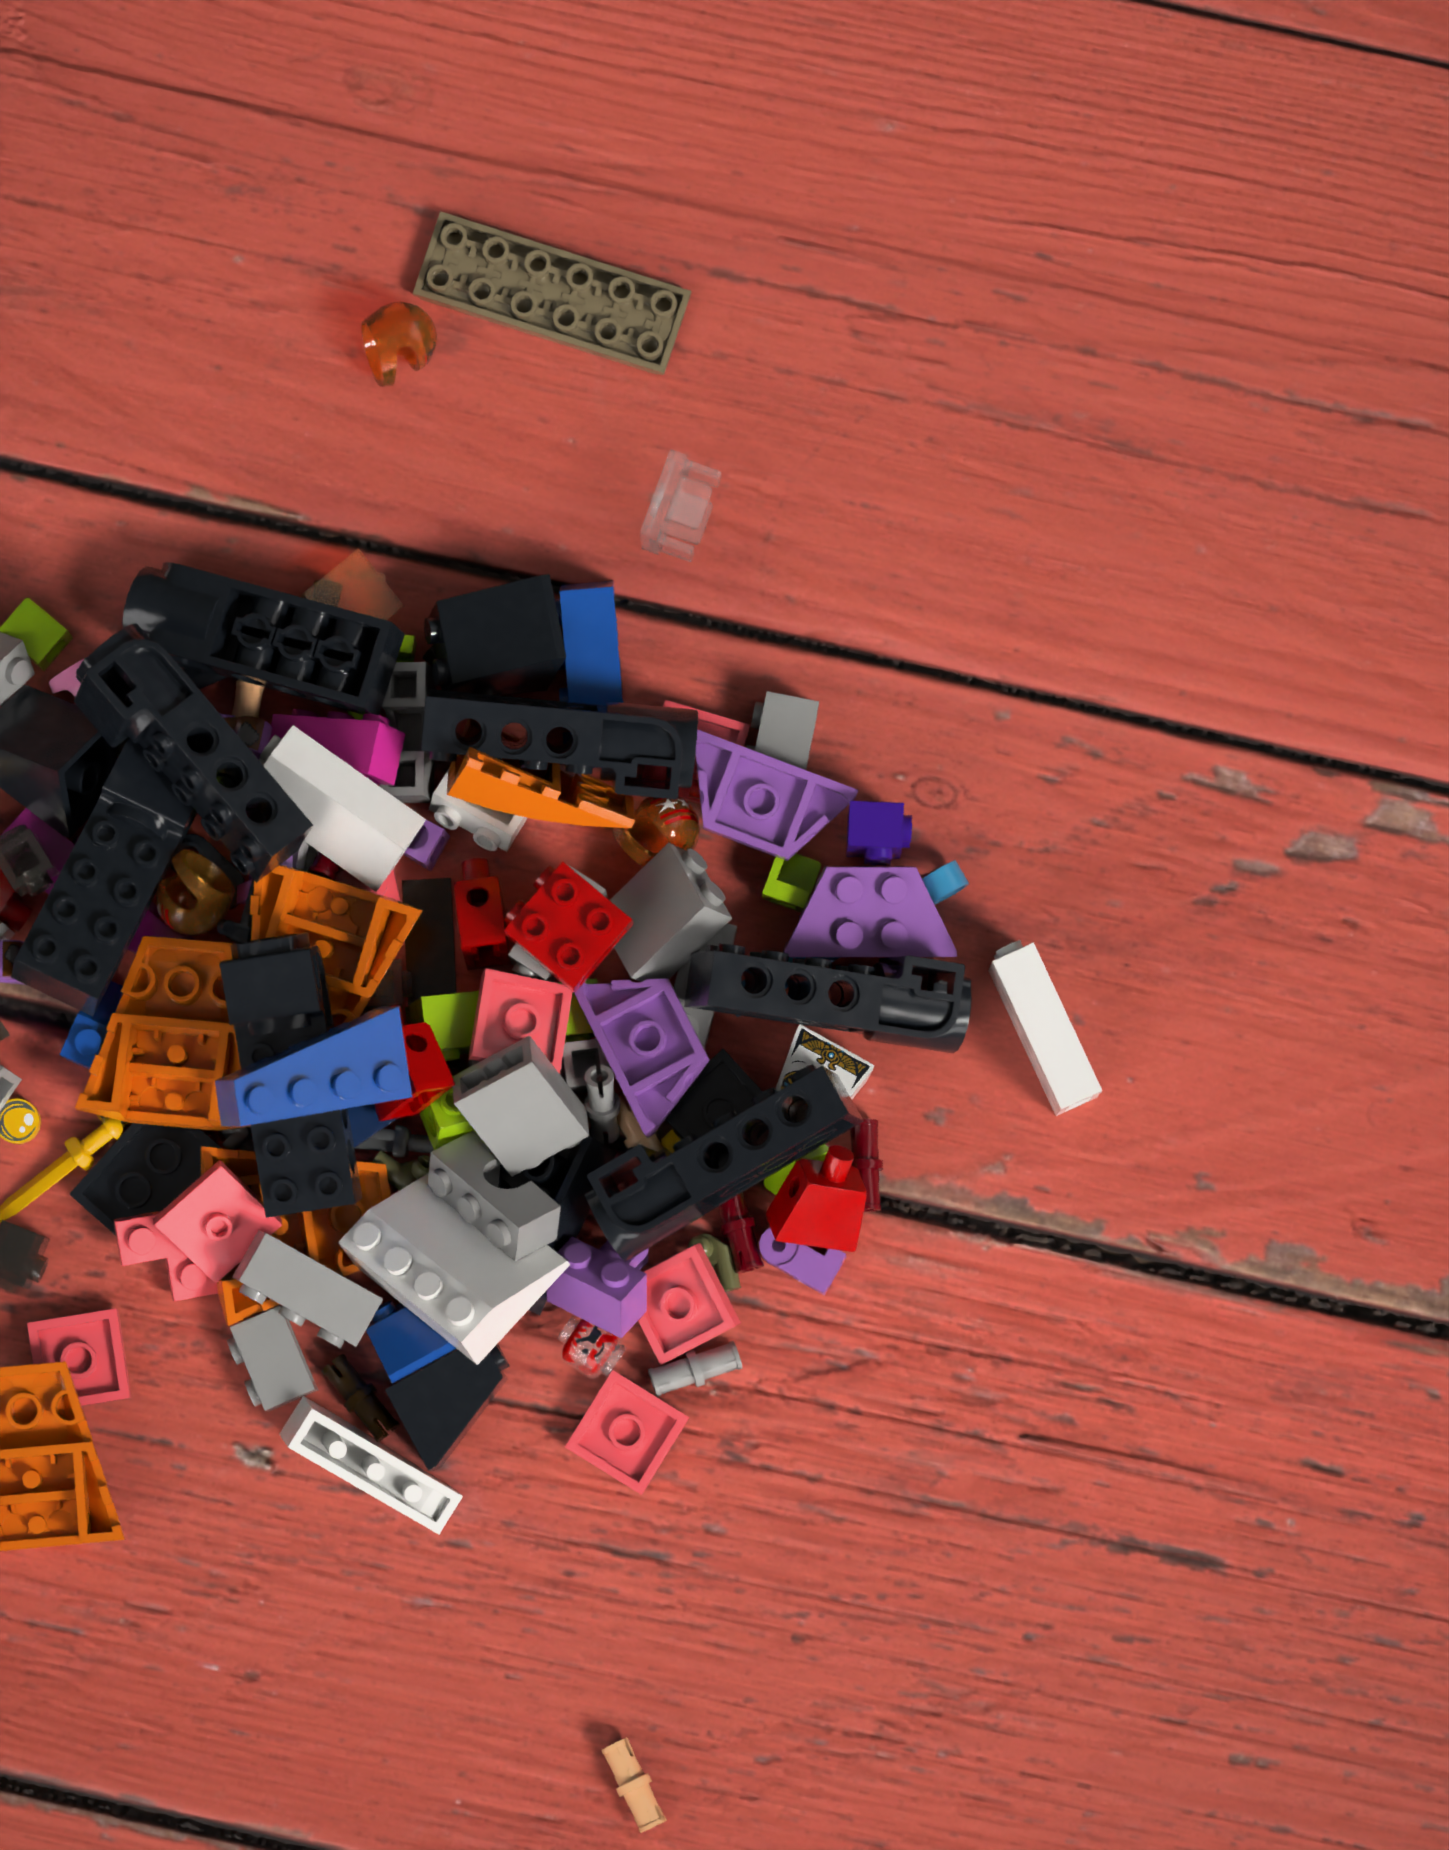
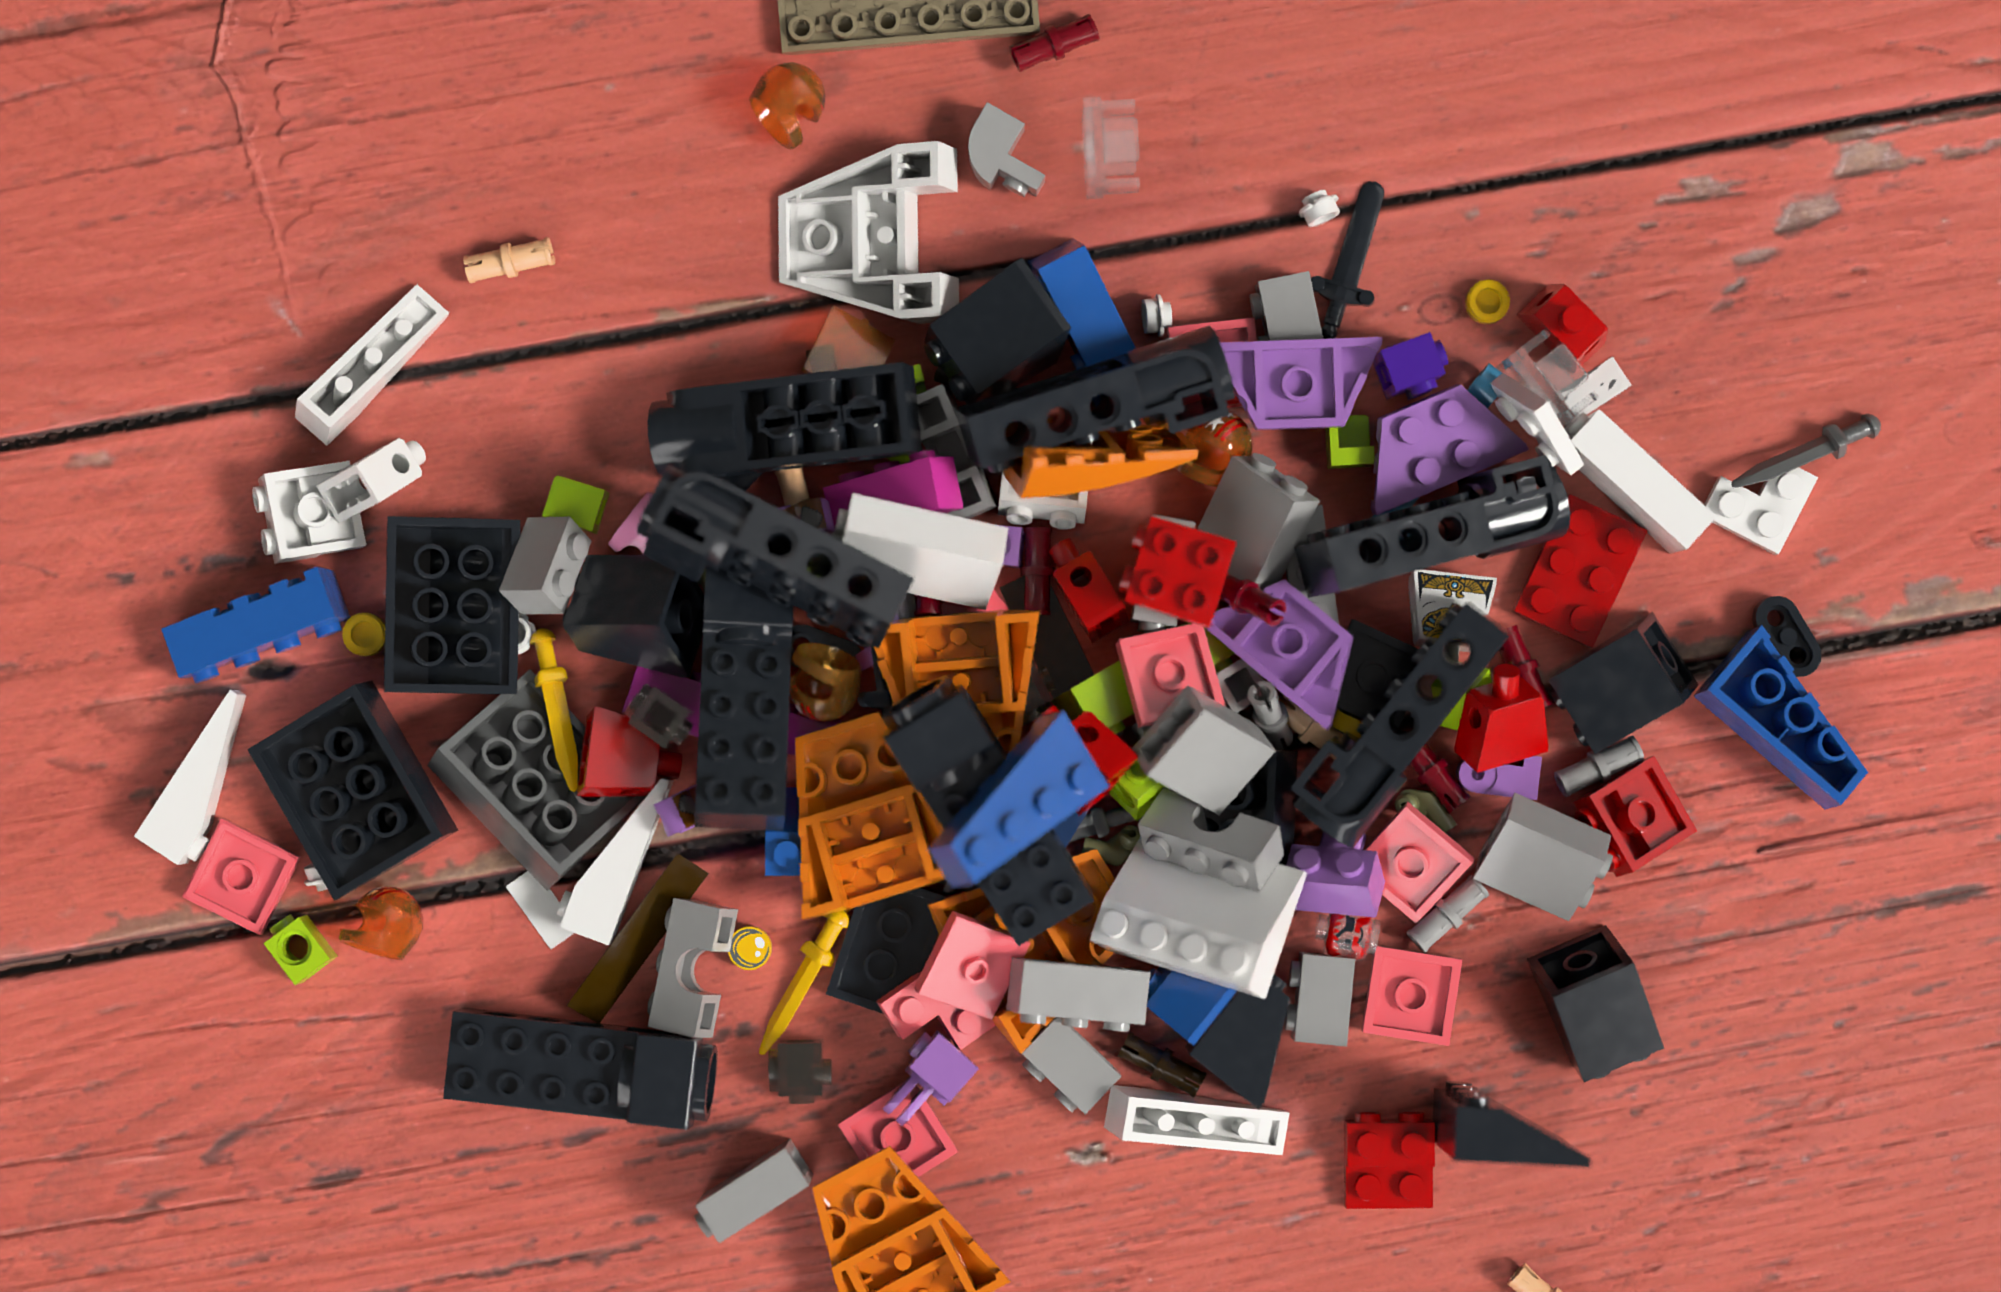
camera: 25 degrees left, 5 degrees up
(73, 380) = (509, 260): none -> light nougat pin
(143, 1307) = (937, 1068): none -> medium lavender brick
(413, 489) = (859, 233): none -> white wedge
(443, 877) = (1037, 569): none -> dark red pin
(537, 1583) = (1389, 1161): none -> red plate
(538, 1398) = (1321, 999): none -> light grey piece
(569, 464) = (990, 153): none -> light grey brick
(624, 980) = (1246, 597): none -> dark red pin
(641, 1582) = (1483, 1130): none -> black slope
(659, 684) = (1156, 315): none -> white plate
(672, 390) = (1054, 42): none -> dark red pin
(799, 1515) = (1596, 1003): none -> black slope
(806, 1350) = (1543, 857): none -> light grey brick
(848, 733) = (1343, 289): none -> black sword
(857, 648) = (1319, 208): none -> white plate
(899, 1288) = (1599, 766): none -> light grey pin
(911, 1350) = (1638, 814): none -> red plate
(955, 1217) = (1623, 684): none -> black slope
(961, 1096) = (1580, 573): none -> red plate
(969, 925) = (1538, 421): none -> white plate
(980, 803) = (1487, 302): none -> yellow tile
(1001, 898) = (1550, 377): none -> clear panel
(1043, 857) = (1566, 320): none -> red torso
(1046, 928) = (1605, 380): none -> white sticker
(1088, 1310) = (1780, 720): none -> blue wedge
(1132, 1240) = (1789, 633): none -> black plate
(1158, 1118) = (1763, 517): none -> white plate
(1255, 1072) = (1832, 441): none -> dark grey sword

